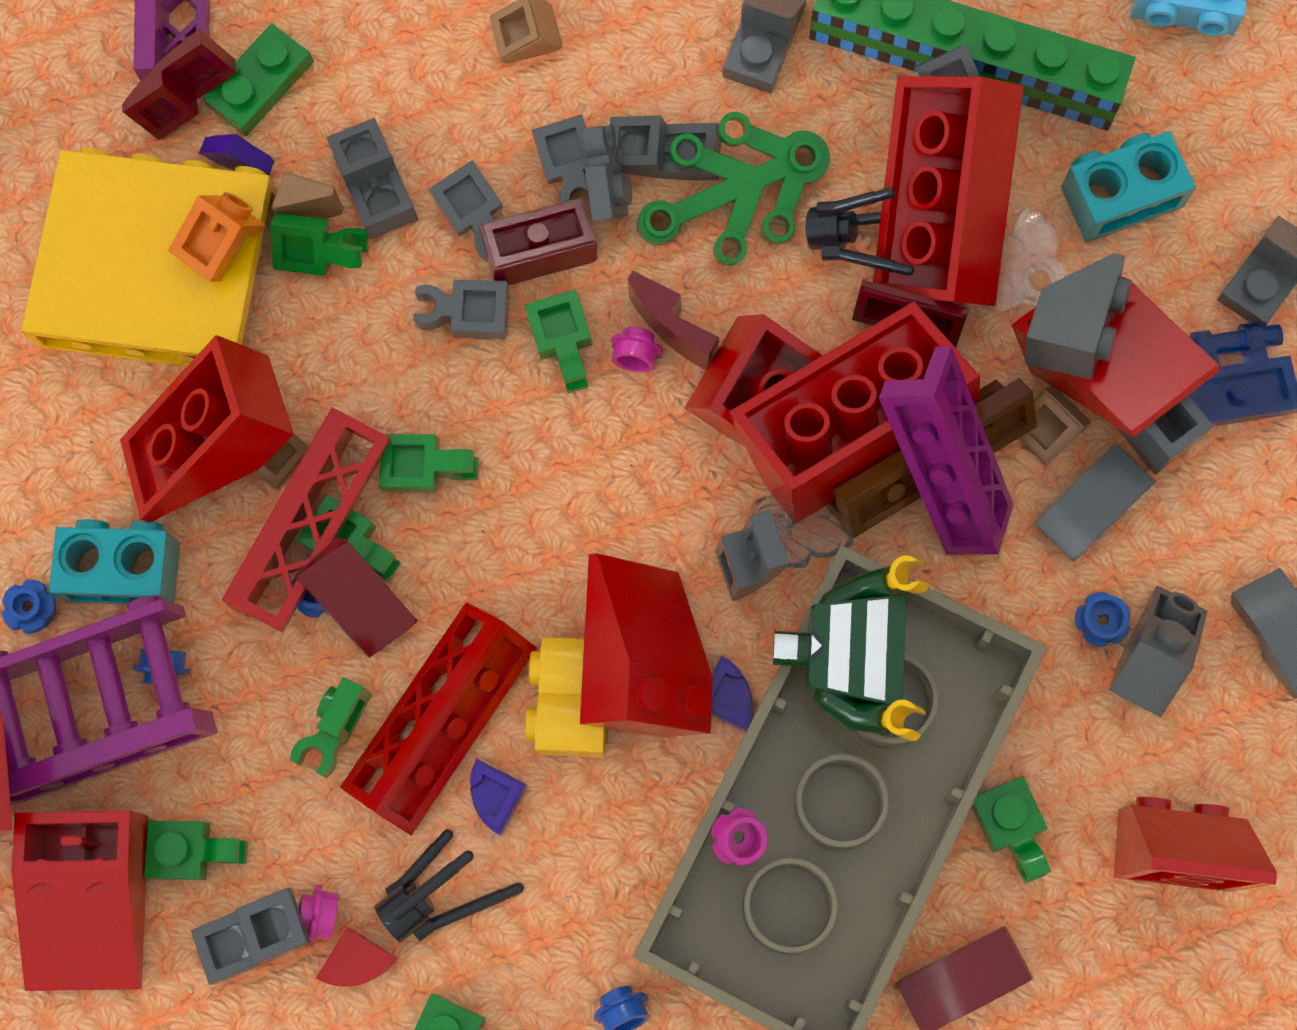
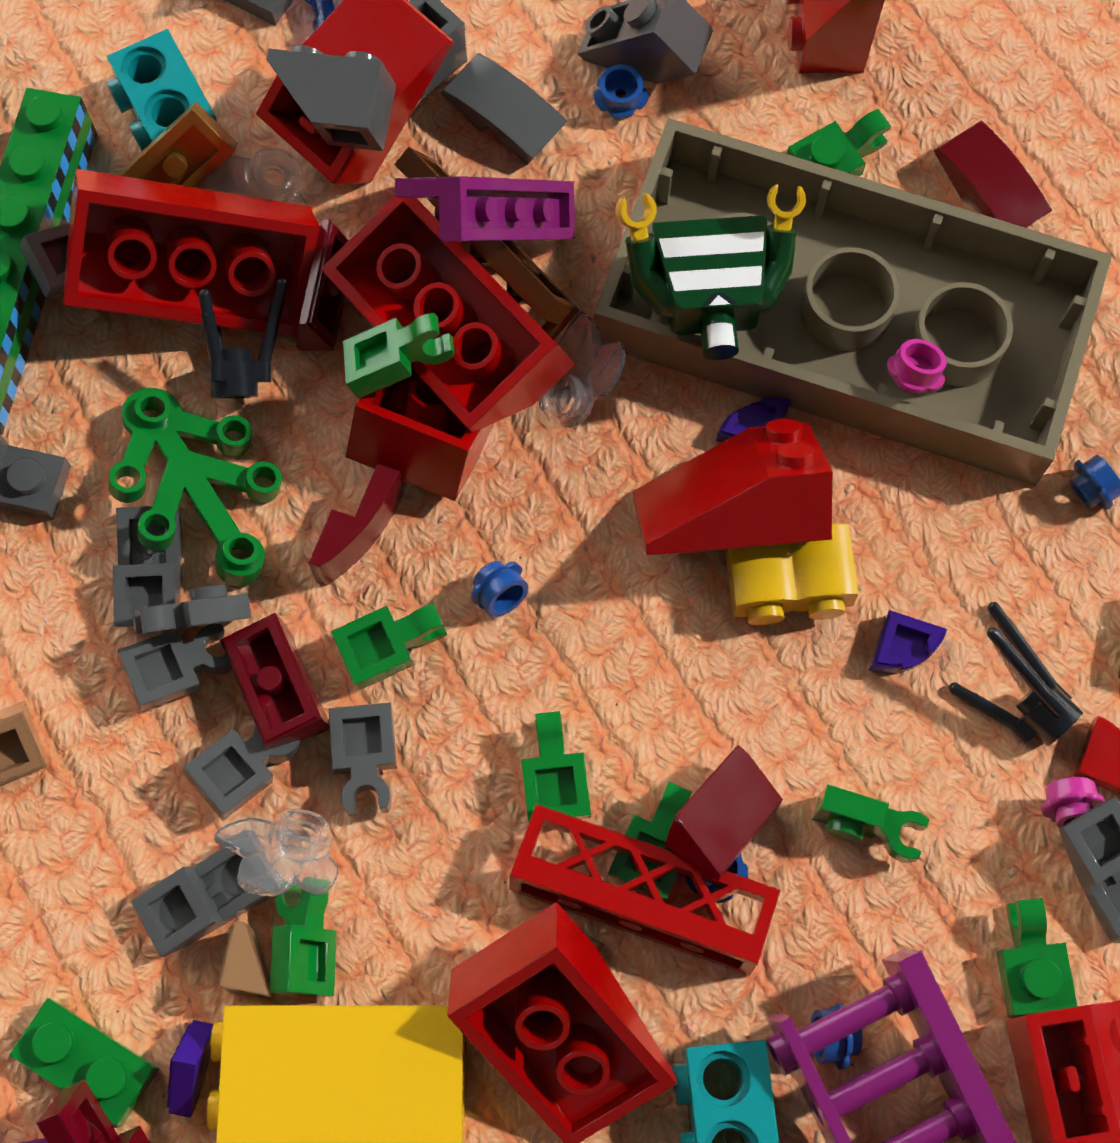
camera: 105 degrees left, 5 degrees down
(214, 233) = (314, 1048): orange bracket -> none
(381, 226) = (282, 853): none -> clear plate
(444, 721) = (844, 695): red fence -> none
(598, 438) = (499, 588): none -> blue plate
(635, 349) = (392, 562): dark pink plate -> none
(752, 555) = (615, 401): dark grey slope -> none
(809, 341) = (386, 352): none -> green plate
(1050, 187) = (184, 151): none -> pearl gold plate
(1057, 424) = (431, 141): medium nougat slope -> none

